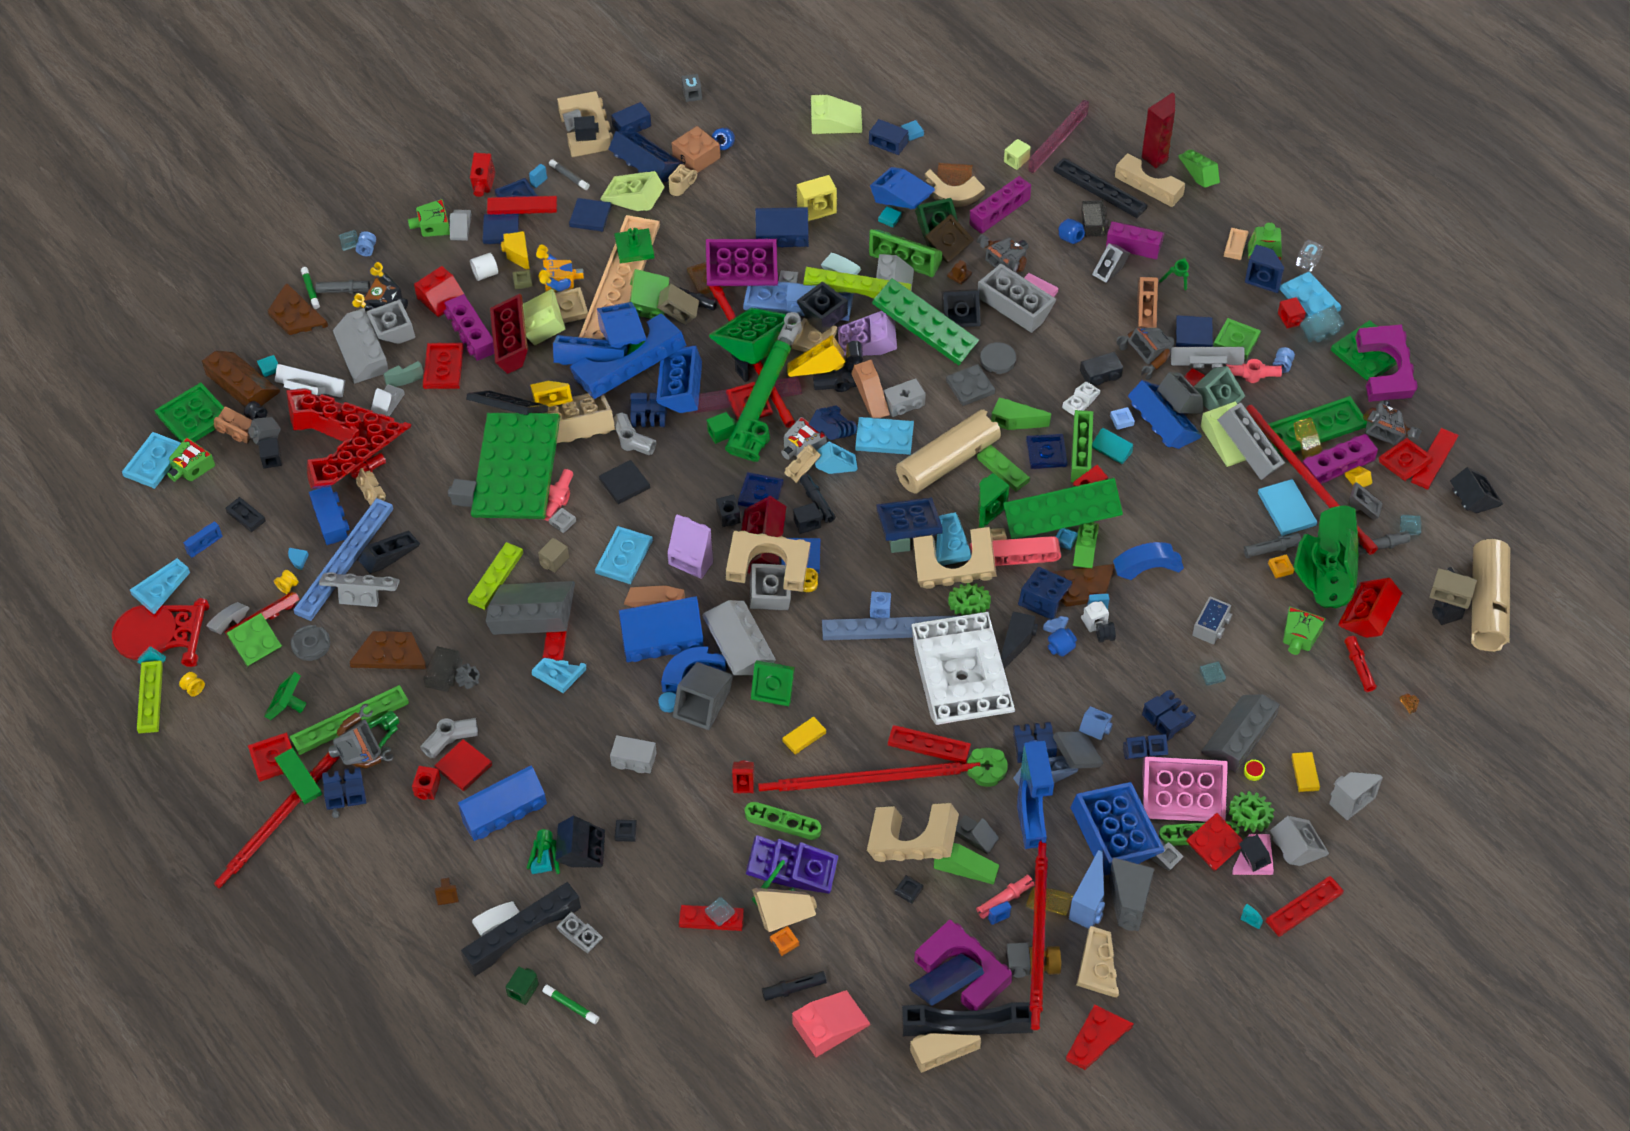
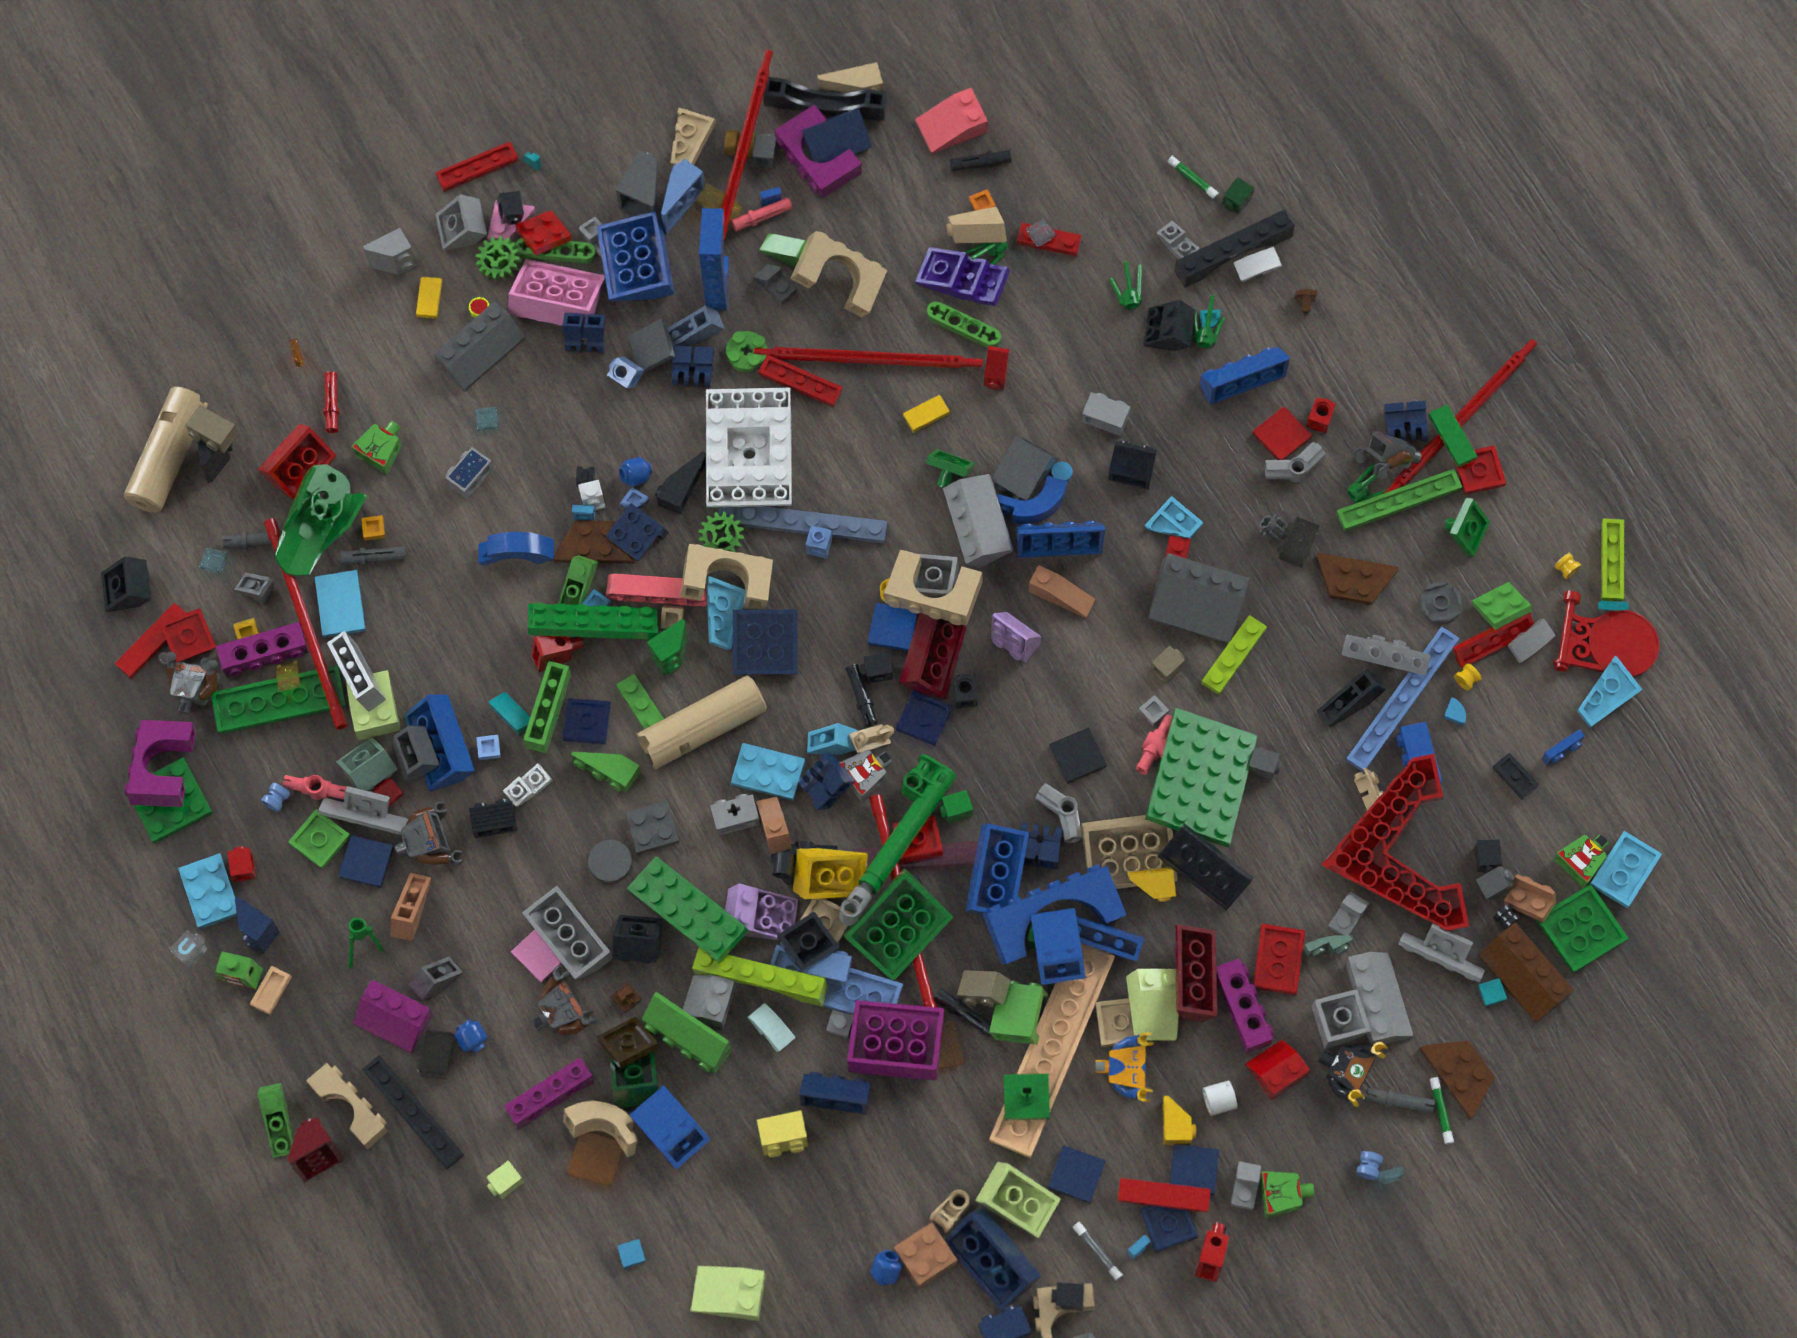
camera: 170 degrees left, 15 degrees up
(522, 279) = (1172, 1080): olive tile -> none
(602, 709) = (1132, 464): none -> black slope
(622, 868) = (1130, 298): none -> green plant
(623, 555) = (1089, 659): medium azure tile -> none
(626, 830) = (1122, 340): black tile -> none
(888, 137) = (666, 1240): dark blue brick -> none
(889, 216) = (694, 1105): teal tile -> none
(909, 889) = (852, 238): black tile -> none
(1058, 136) = (442, 1203): clear pink tile -> none
(1096, 1036) = (708, 77): red wing -> none
(1167, 715) = (556, 377): dark blue legs -> none
(1321, 324) = (212, 838): clear light blue brick -> none

